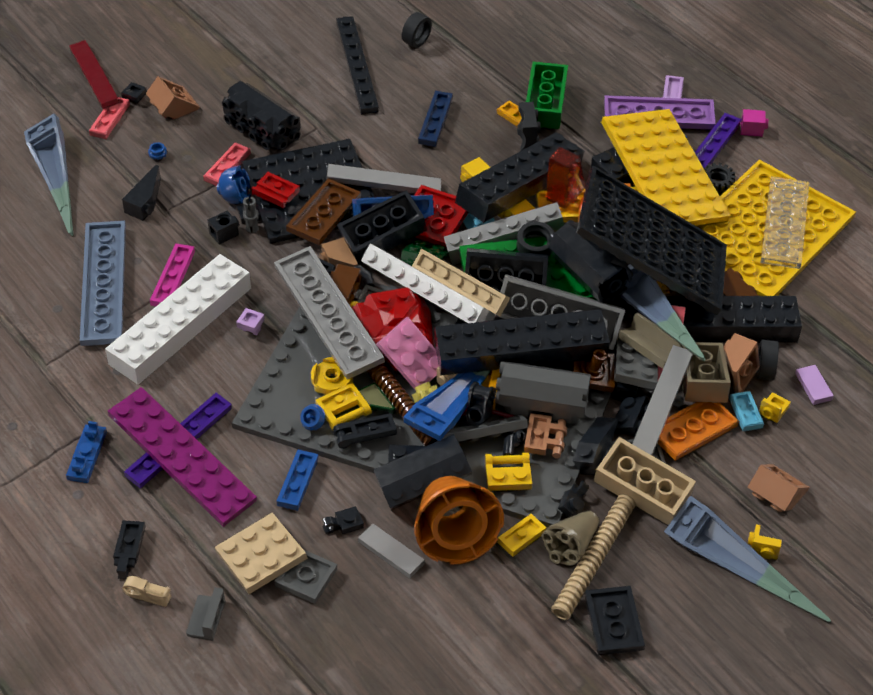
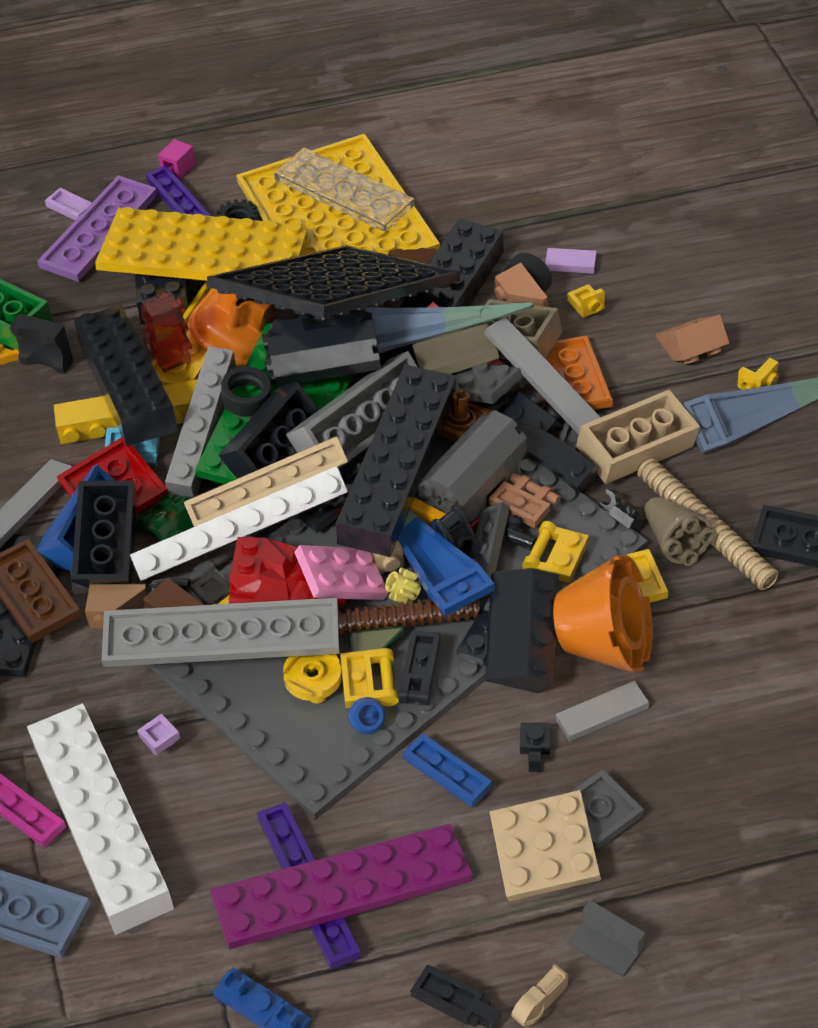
camera: 60 degrees left, 0 degrees up
(746, 411) = (581, 324): medium azure plate -> none

